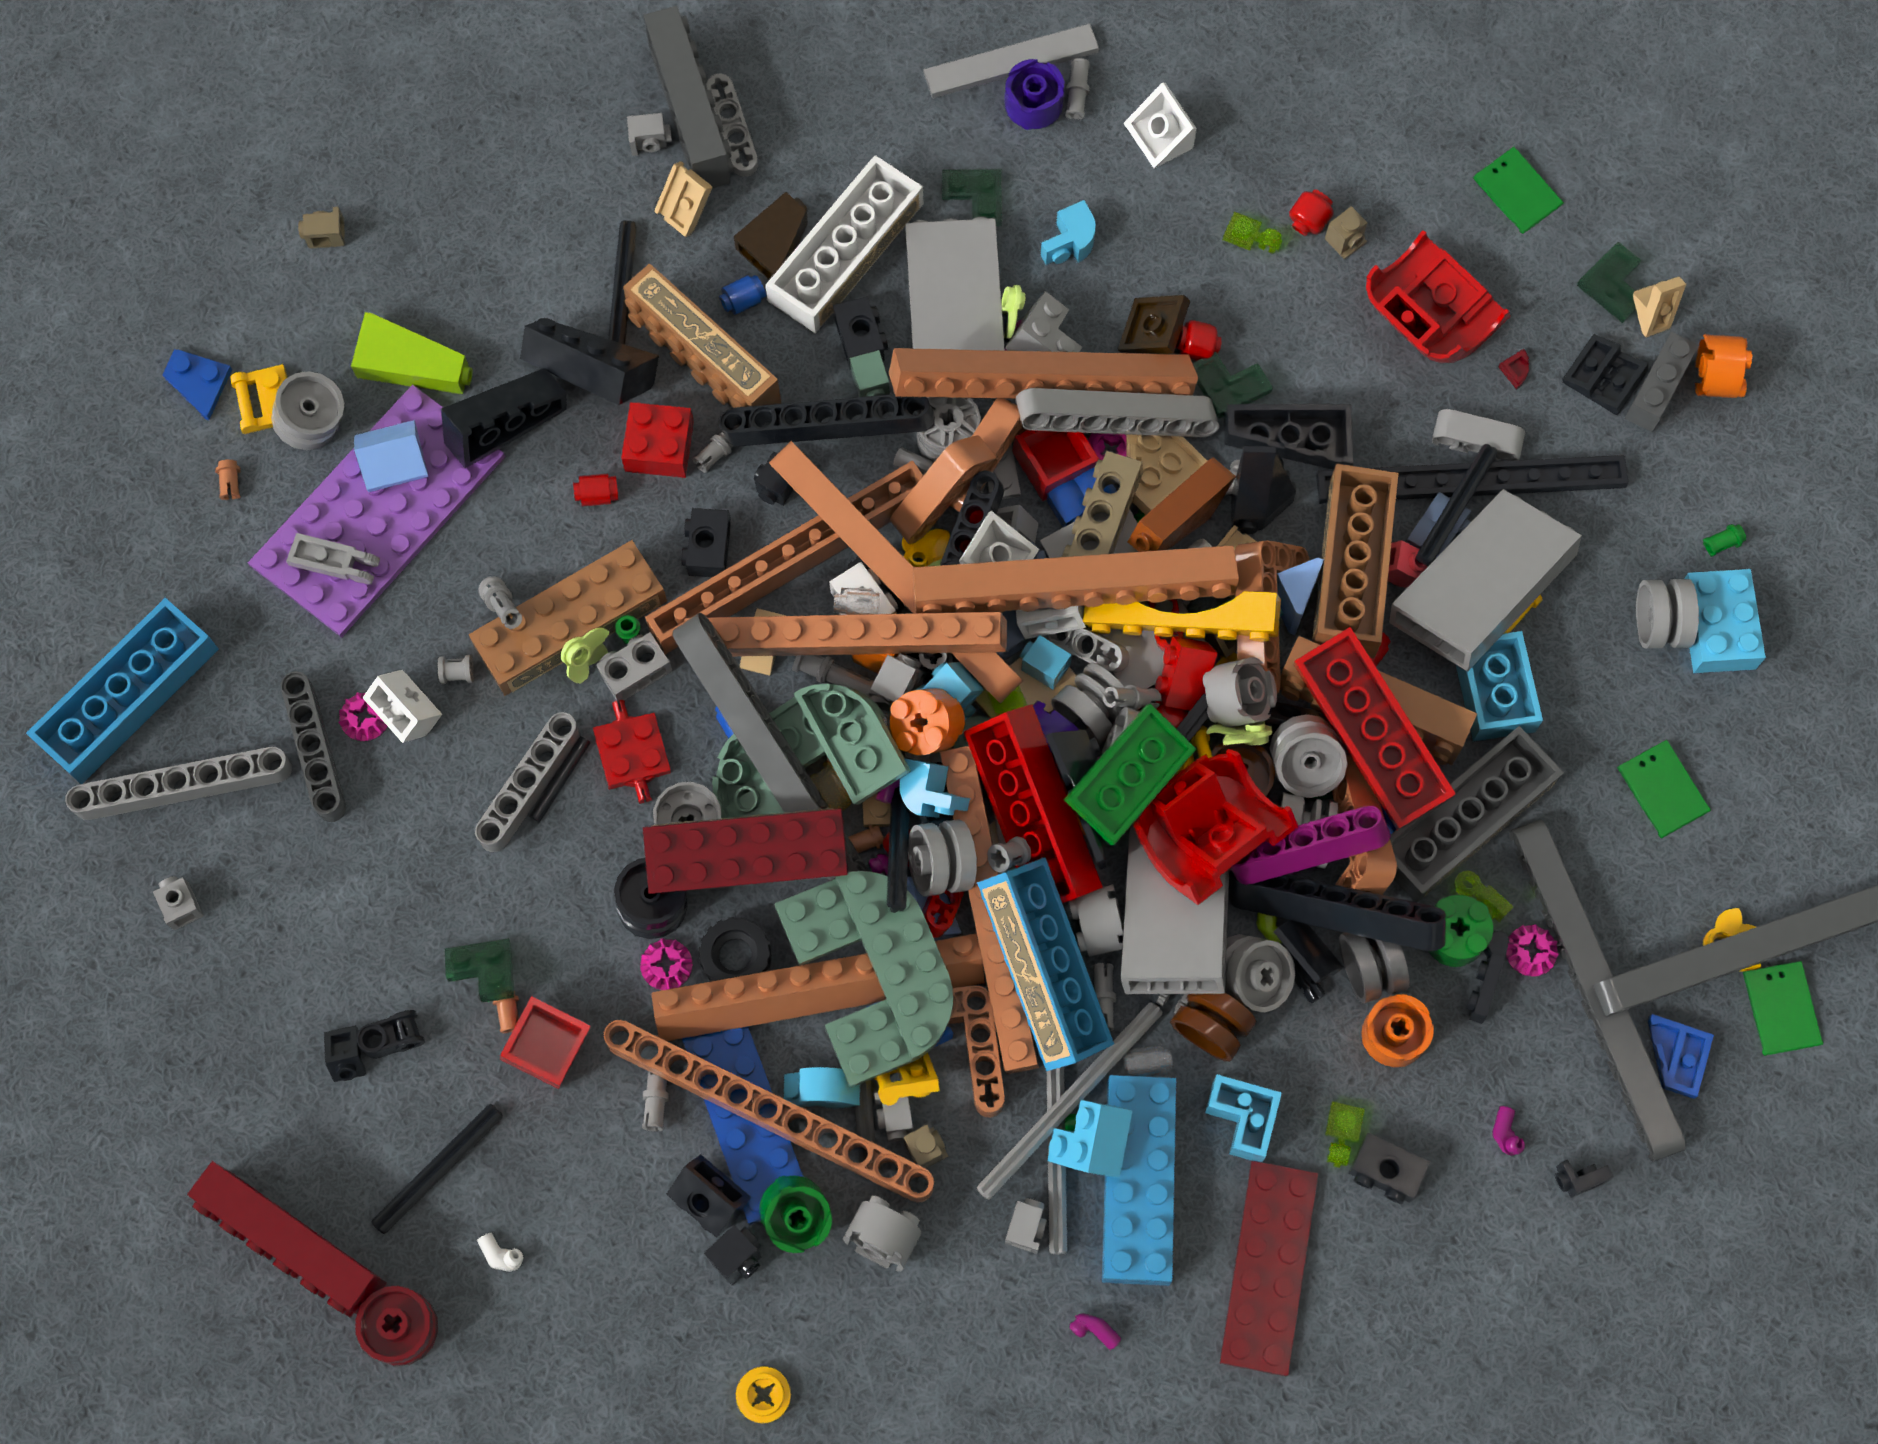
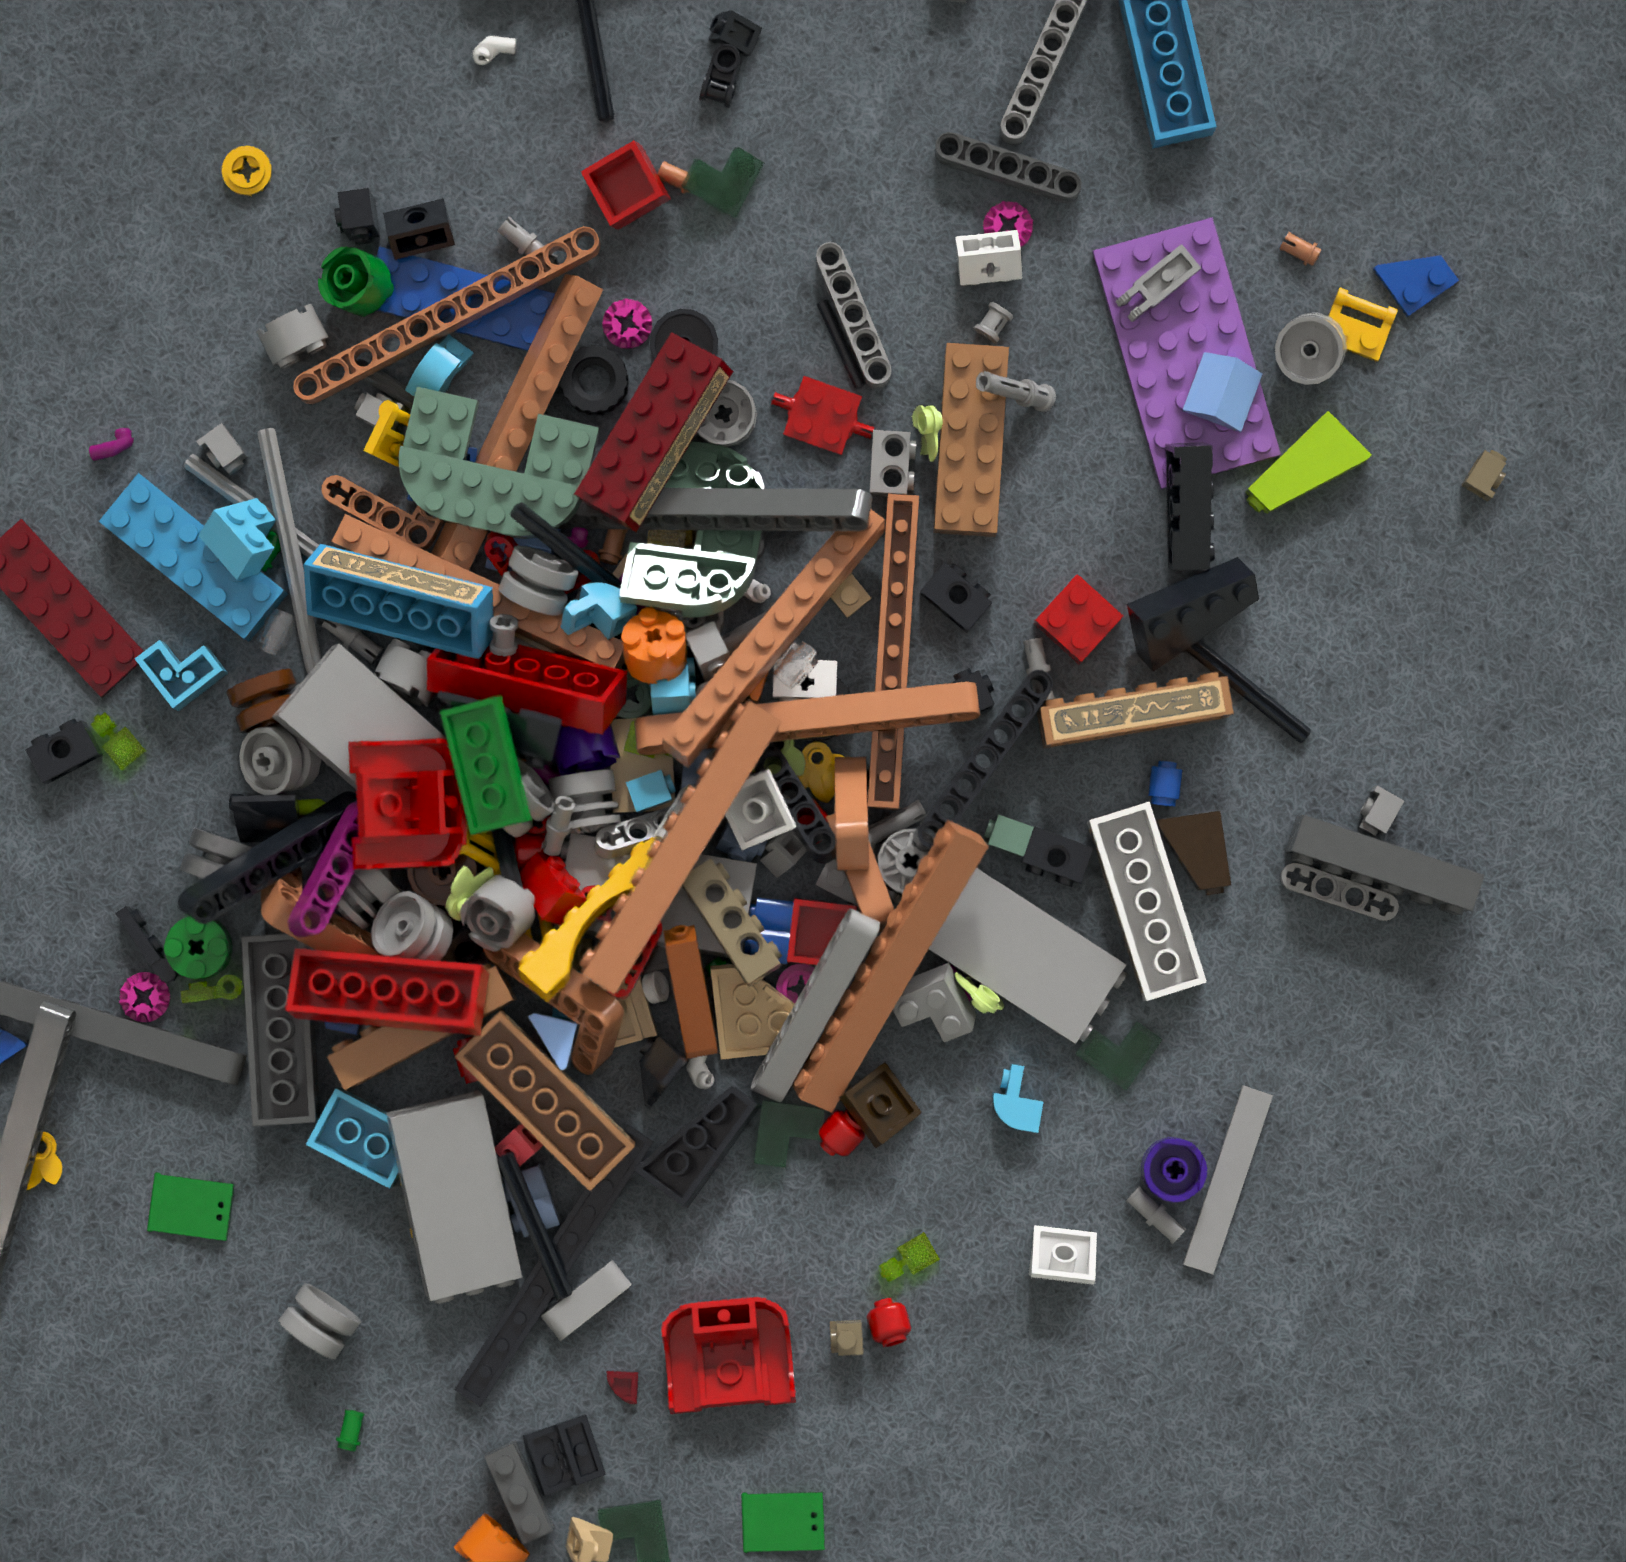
camera: 125 degrees right, 15 degrees up
(596, 489) = (1072, 540): red brick -> none
(627, 622) = (924, 472): green pin -> none
(683, 199) = (1288, 794): tan plate -> none
(925, 1146) = (336, 416): dark tan brick -> none
(1413, 1038) = (141, 831): orange brick -> none
(1504, 1135) = (24, 862): magenta arm -> none
(1728, 622) = (283, 1366): medium azure brick -> none

